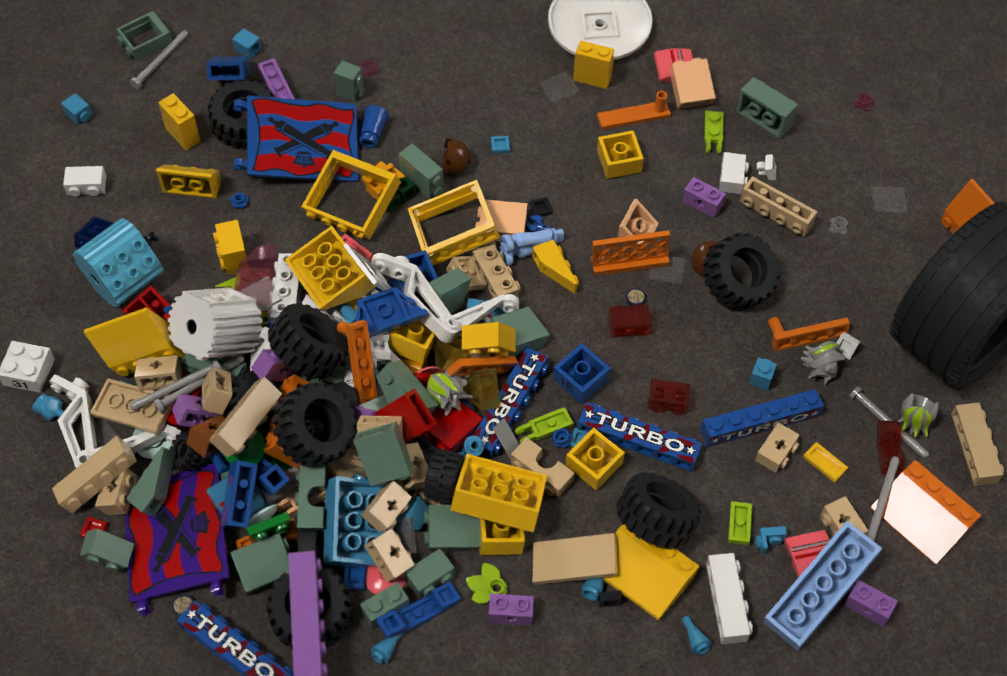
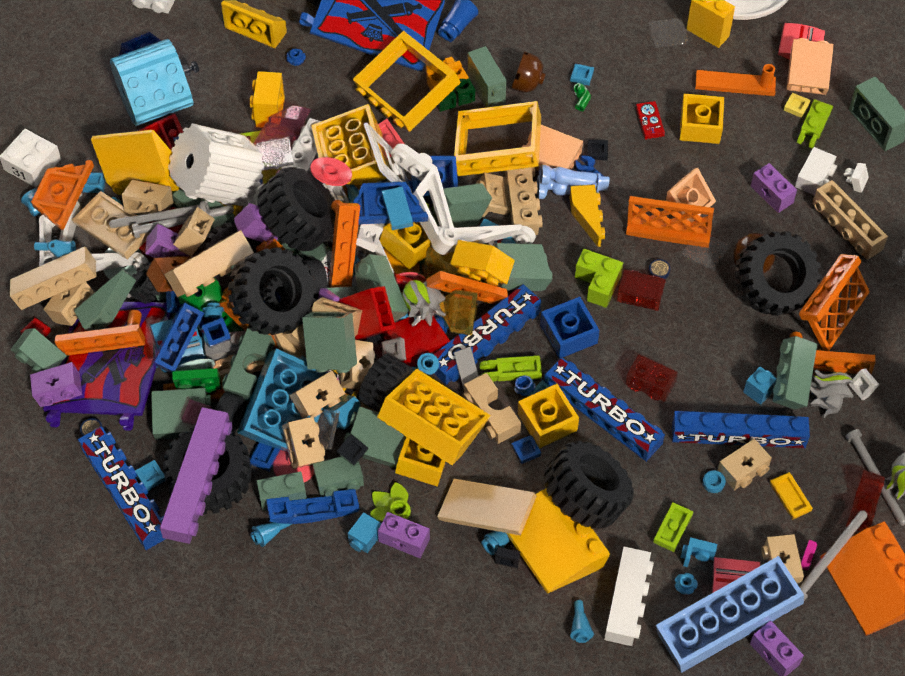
camera: 20 degrees right, 0 degrees up
(70, 390) = (61, 191): none -> orange wing
(88, 444) = (57, 247): none -> dark azure piece
(95, 371) = (95, 183): none -> dark azure tile
(135, 575) = (56, 384): none -> medium lavender brick
(166, 517) = (103, 339): none -> orange piece
(257, 630) = (150, 475): none -> dark azure plate
(263, 459) = (213, 311): none -> dark azure plate
(279, 559) = (192, 412): none -> clear pink tile
(324, 297) = (331, 171): none -> coral dish
(398, 313) = (397, 208): none -> dark azure tile
(436, 441) = (394, 347): none -> light grey tile
(437, 547) = (352, 450): none -> black tile
(475, 619) = (364, 533): none -> dark azure brick
(509, 163) = (583, 96): none -> green arm
(574, 168) = (650, 120): none -> red tile
(585, 495) = (526, 449): none -> blue tile
(588, 315) = (601, 273): none -> lime brick
(692, 120) = (797, 105): none -> light yellow tile
(756, 471) = (714, 481): none -> dark azure tile
(770, 575) = (681, 587): none -> dark azure plate
(790, 354) = (794, 372): none -> sand green brick
(796, 279) = (827, 294): none -> orange fence
(861, 504) = (808, 554): none -> dark pink tile

